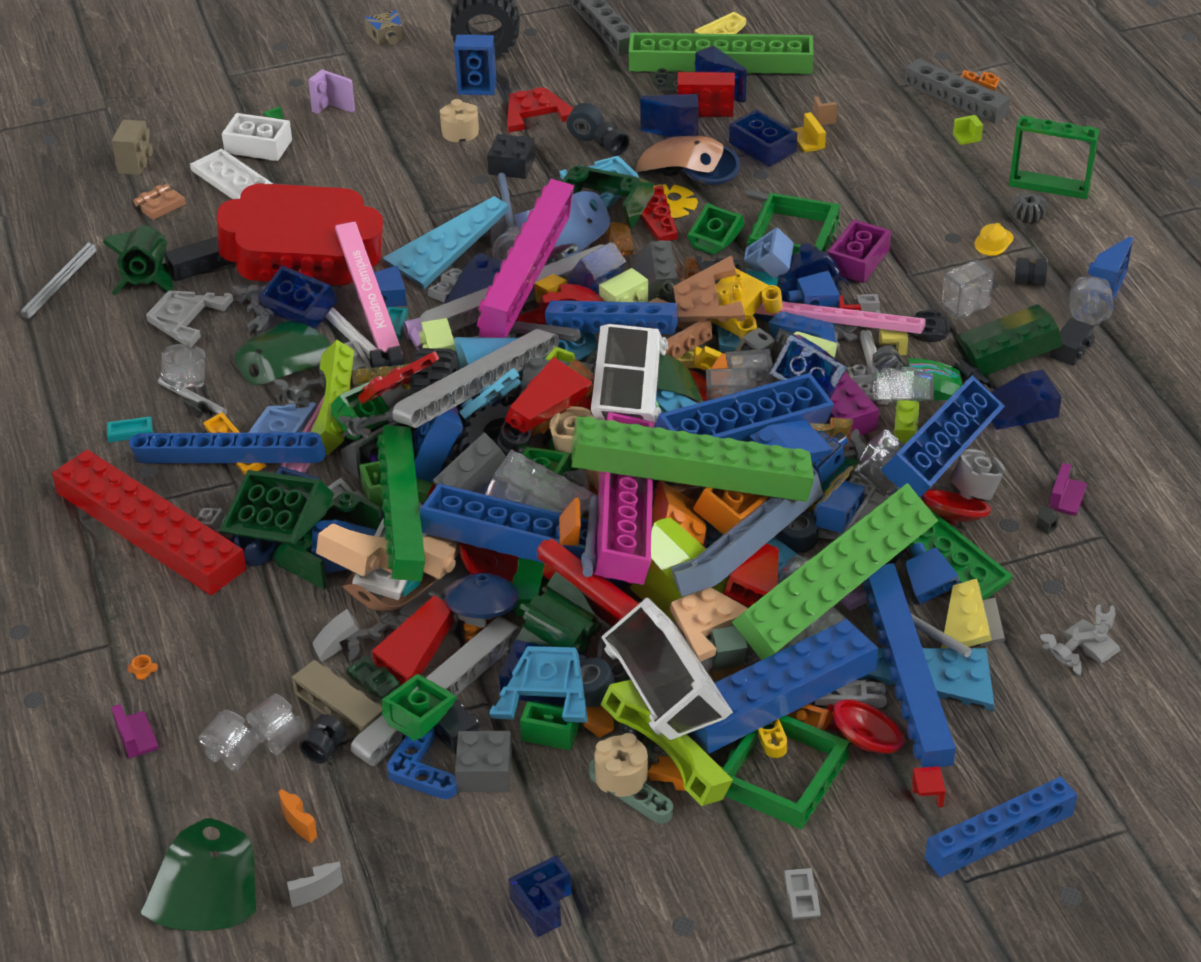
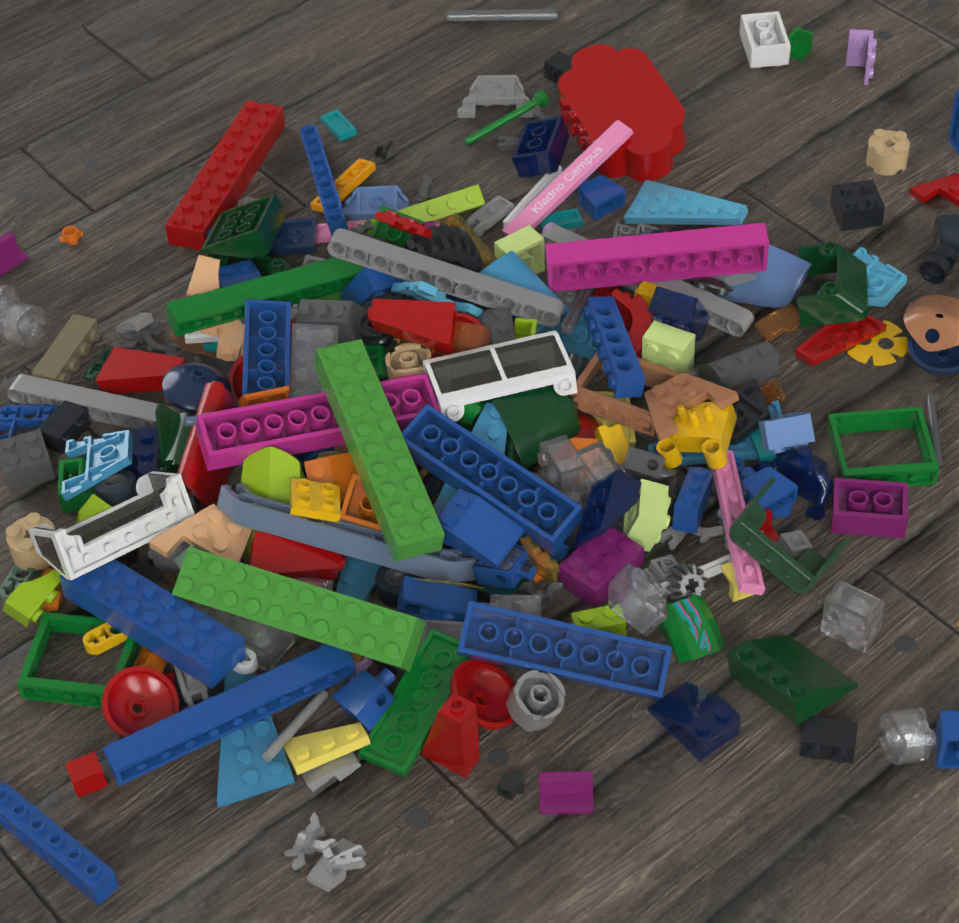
camera: 70 degrees right, 5 degrees up
(140, 257) = (537, 38): dark green brick -> none
(163, 204) = (642, 29): nougat plate -> none
(183, 366) = (414, 118): clear brick -> none
(195, 398) = (396, 142): light grey bar -> none
(226, 173) = (701, 53): white plate -> none
(226, 281) = (540, 98): none -> green piece
(284, 349) = (473, 164): dark green piece -> none
(322, 738) = (19, 357): black wheel -> none
(390, 357) = (491, 229): black wheel -> none
(416, 706) = (53, 391): green slope -> none
(505, 198) = (799, 224): sand blue bar -> none
(715, 229) = (837, 386): green slope -> none
(716, 525) = (315, 500): none -> yellow plate
(904, 299) = (795, 575): none -> dark green windscreen
(935, 328) = (788, 608): black tile -> none
(968, 371) = (717, 666): black pin -> none
(1006, 519) = (454, 736): none -> red slope
(1031, 271) = (934, 669): black wheel -> none

